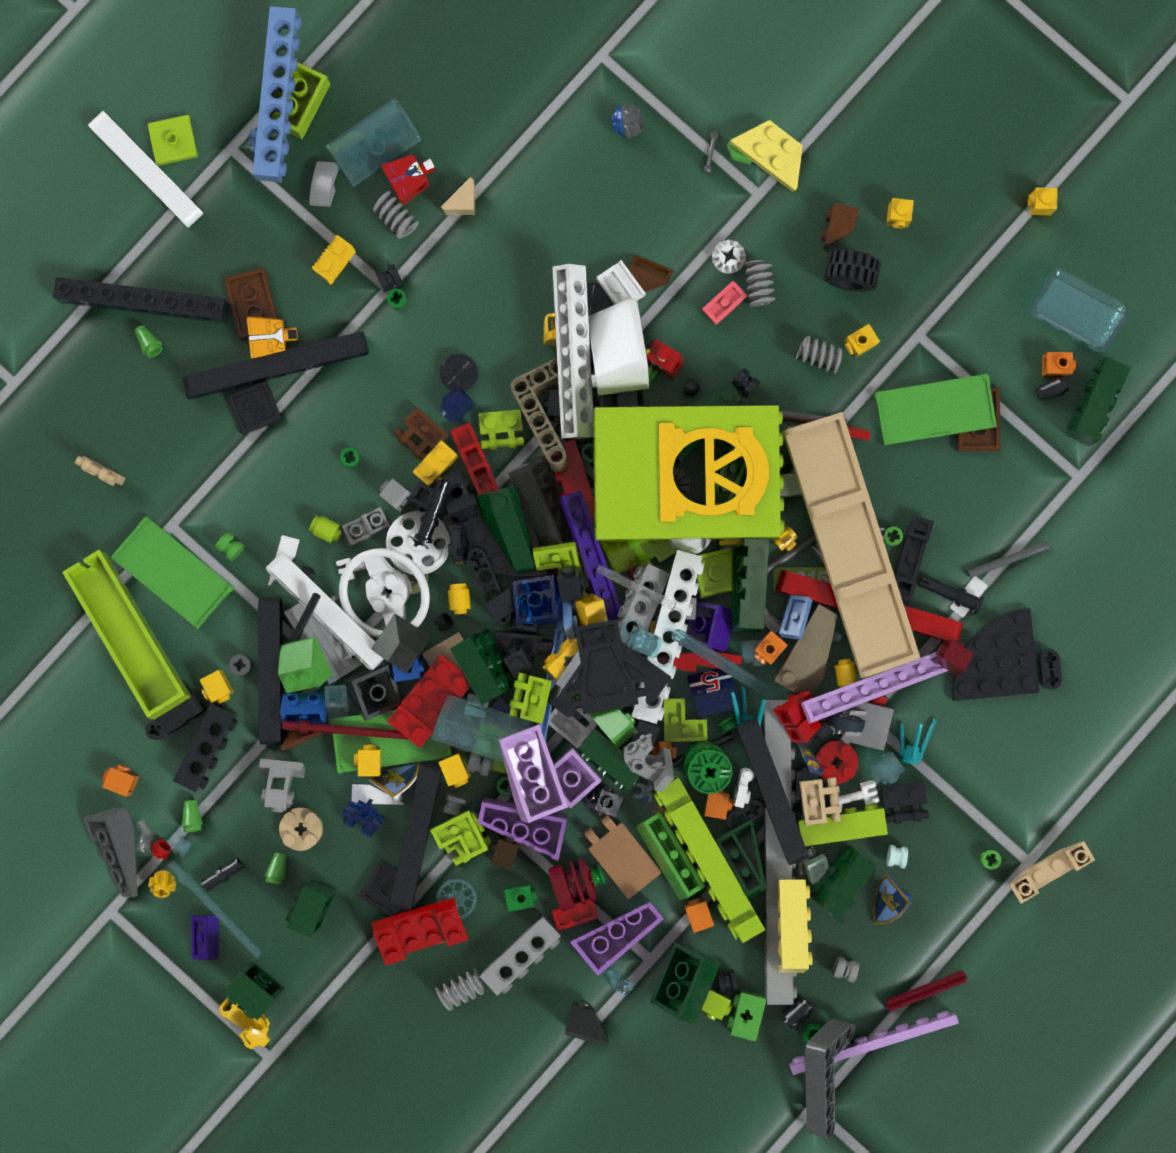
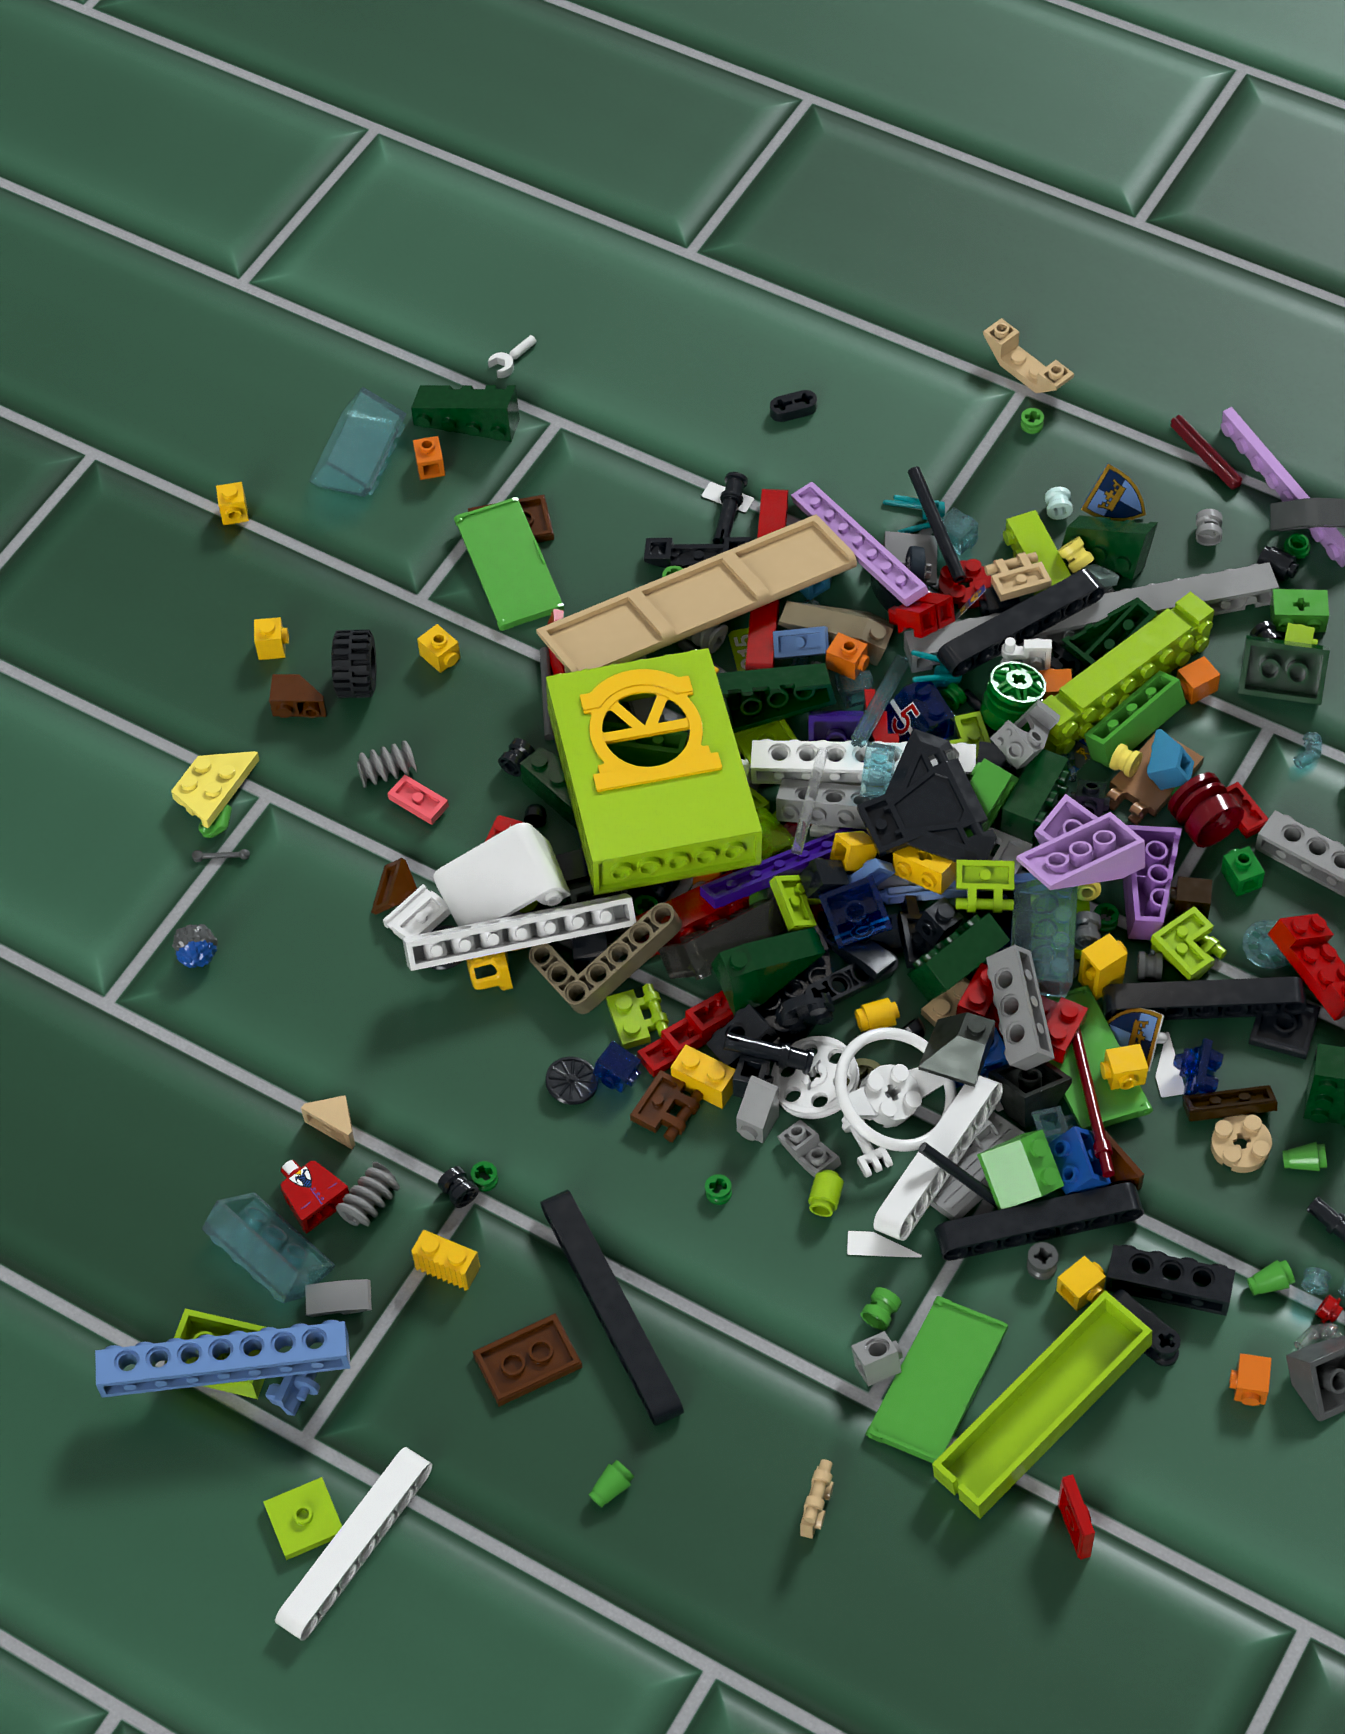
camera: 100 degrees left, 30 degrees down
(45, 636) = (1076, 1517): none -> red plate
(141, 300) = (552, 1504): black brick -> none
(192, 525) = (877, 1358): none -> light grey brick
(255, 407) = (676, 1324): black tile -> none
(268, 335) = (572, 1317): light orange torso -> none
(278, 799) = (1173, 1182): light grey tile -> none
(331, 830) = (1229, 1103): none -> dark brown tile
(421, 696) = (1017, 988): none -> light grey brick
(609, 942) = (1253, 753): medium lavender wedge -> none
(621, 870) = (1169, 762): none -> dark azure slope
(631, 837) = (1125, 760): none -> light yellow wheel
(732, 265) = (362, 816): white gear -> none
(793, 926) = (1179, 567): light yellow wedge -> none
(820, 354) = (465, 686): light grey piece -> none
(831, 853) = (1076, 554): none -> light yellow wheel
(846, 672) = (856, 590): yellow brick -> none
(867, 793) = (992, 545): white hinge -> none
(885, 751) = (936, 524): none -> black piece
(905, 795) = (983, 509): black plate -> none
(953, 657) = (806, 483): dark red brick -> none
(1001, 660) = (795, 453): black plate -> none
(1008, 559) = (672, 464): dark grey bar -> none
(1052, 388) = (457, 457): black cone -> none
(1157, 453) = (507, 359): none -> white piece

